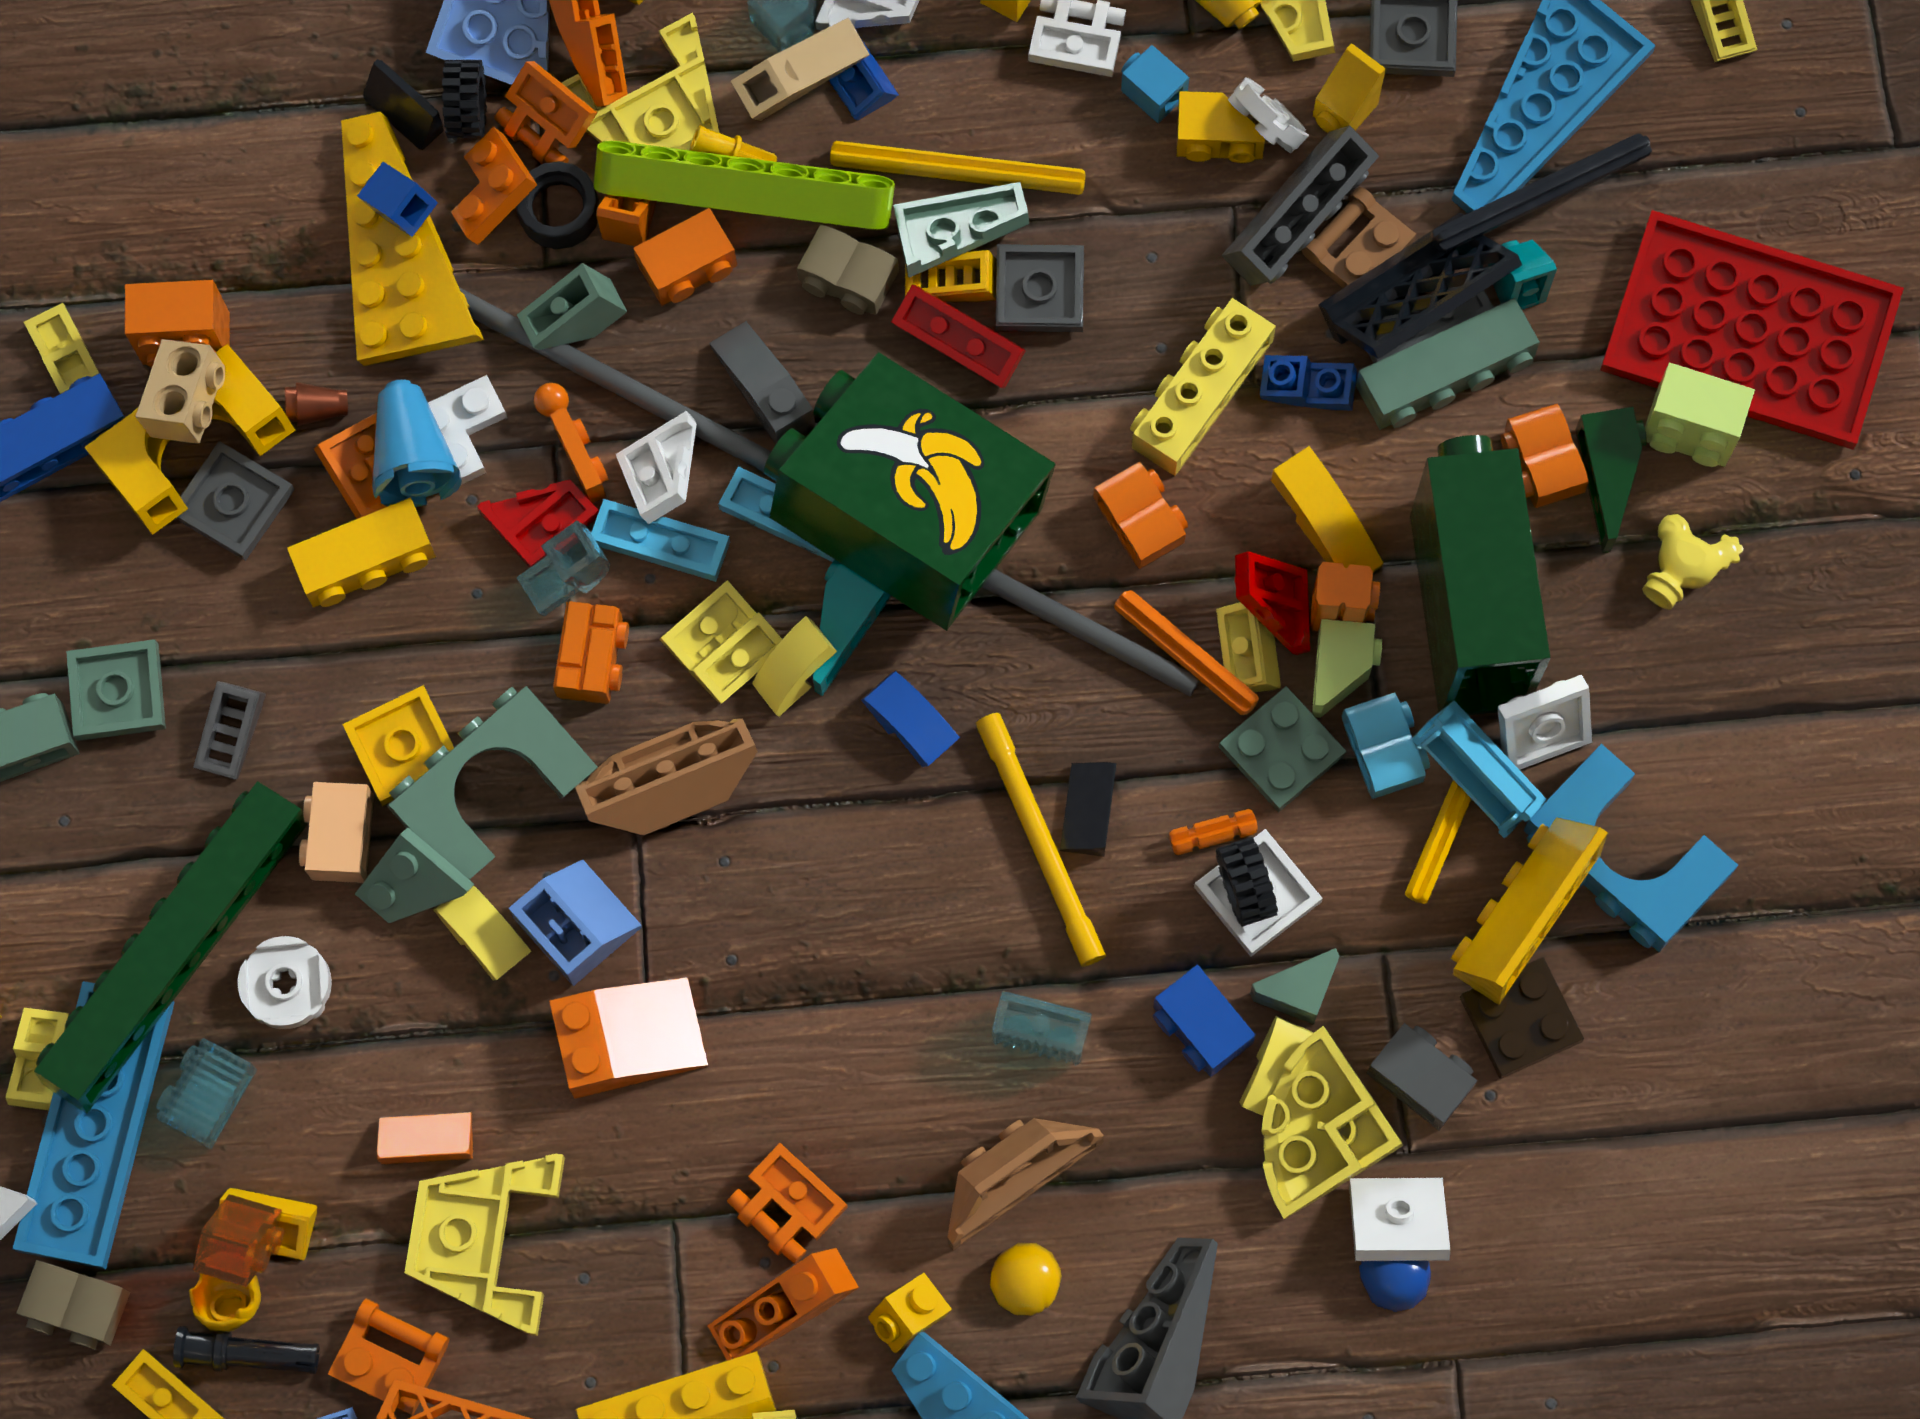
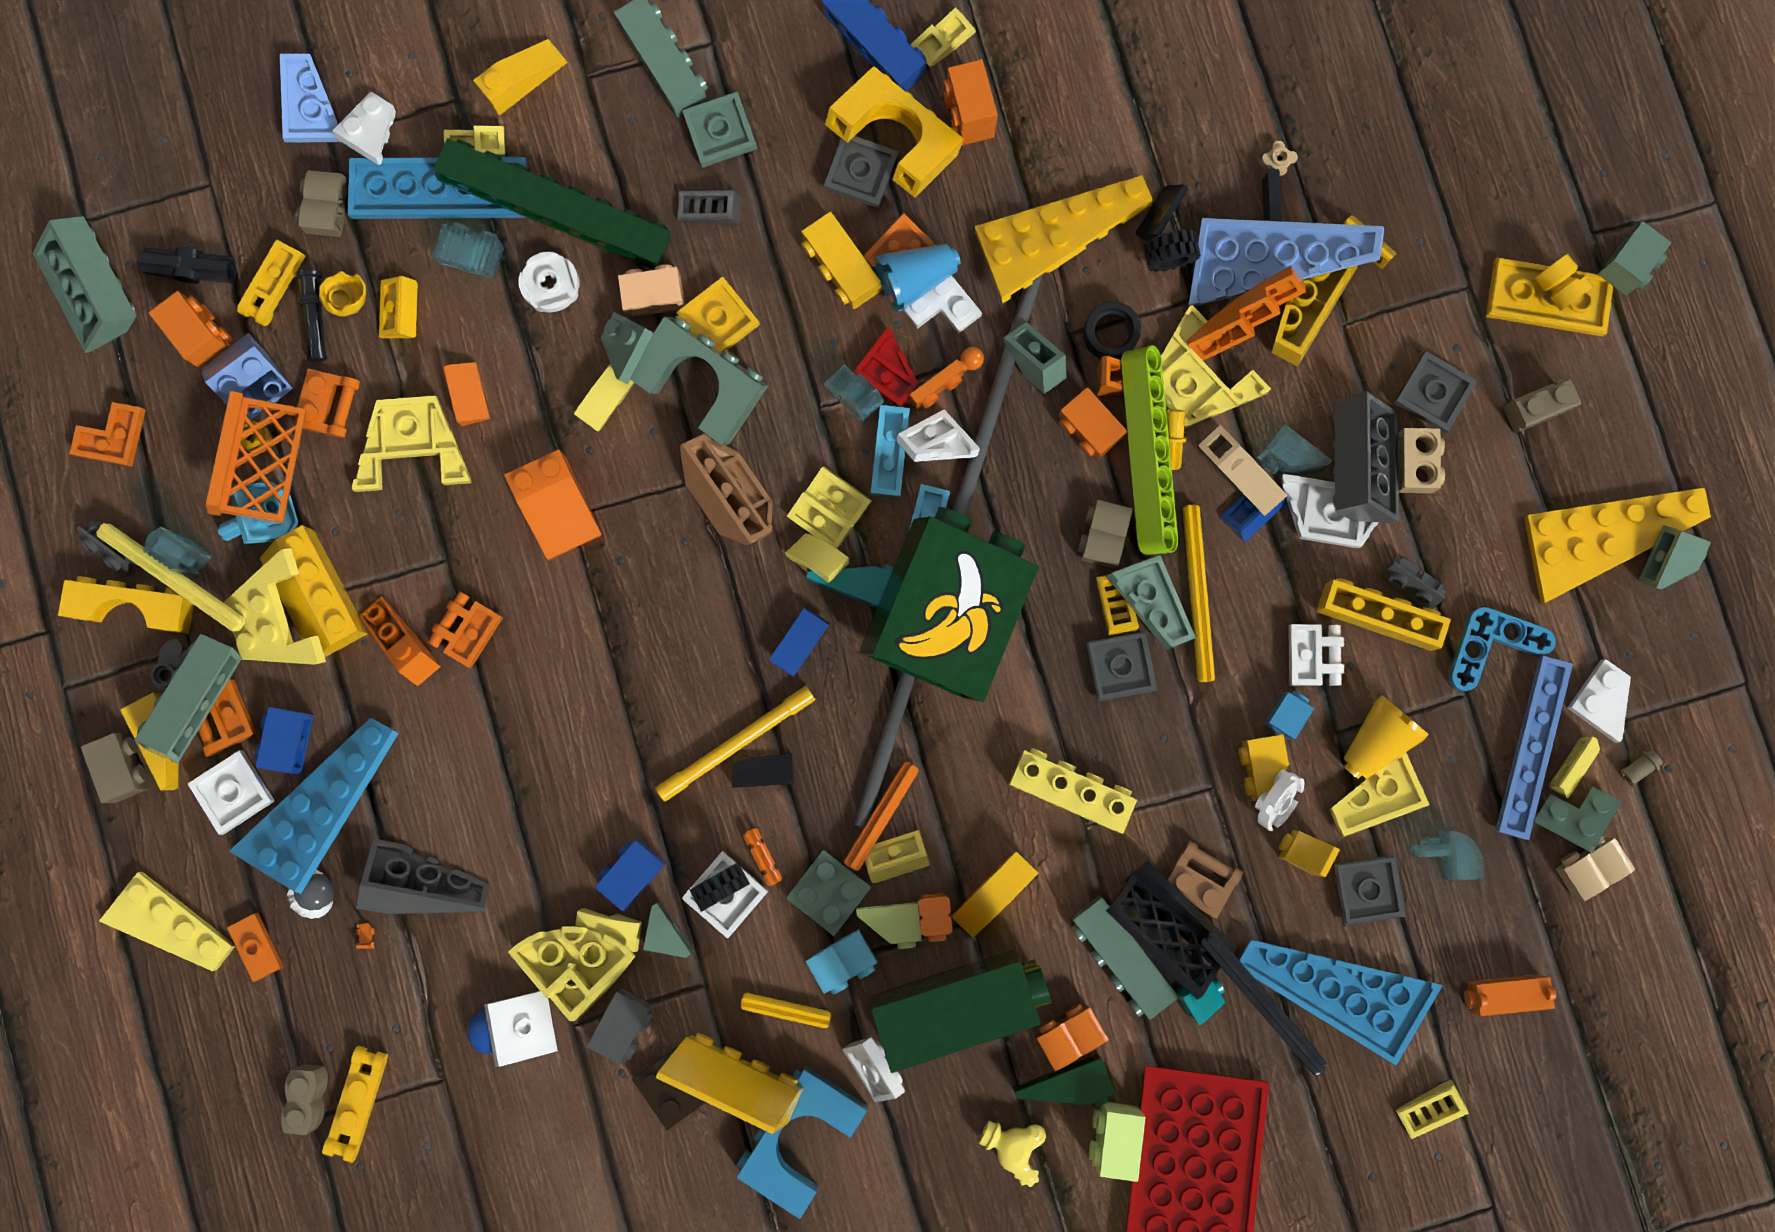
camera: 80 degrees right, 10 degrees up
(172, 389) = (918, 108): tan brick -> none
(239, 1240) = (368, 292): clear orange brick -> none
(314, 403) = (938, 205): copper cone -> none
(397, 199) = (1085, 222): blue brick -> none
(501, 186) = (1114, 290): orange plate -> none
(551, 106) = (1178, 310): orange plate -> none
(574, 920) = (620, 453): medium blue slope -> none
(589, 652) = (802, 423): orange brick -> none
(763, 382) = (1014, 494): dark grey slope -> none
(908, 1312) = (408, 721): yellow bracket -> none
(958, 336) = (1074, 618): red plate -> none
(1014, 1171) = (510, 770): medium nougat wedge -> none
(1025, 1279) = (445, 791): yellow hair -> none
(1041, 1027) = (603, 769): clear light blue brick -> none
(1140, 514) = (972, 766): orange brick -> none
(1276, 597) = (928, 869): red wing -> none
(1301, 206) = (1217, 835): dark grey brick -> none
(1308, 384) = (1092, 863): blue slope -> none
(1480, 768) = (834, 1030): medium azure container -> none

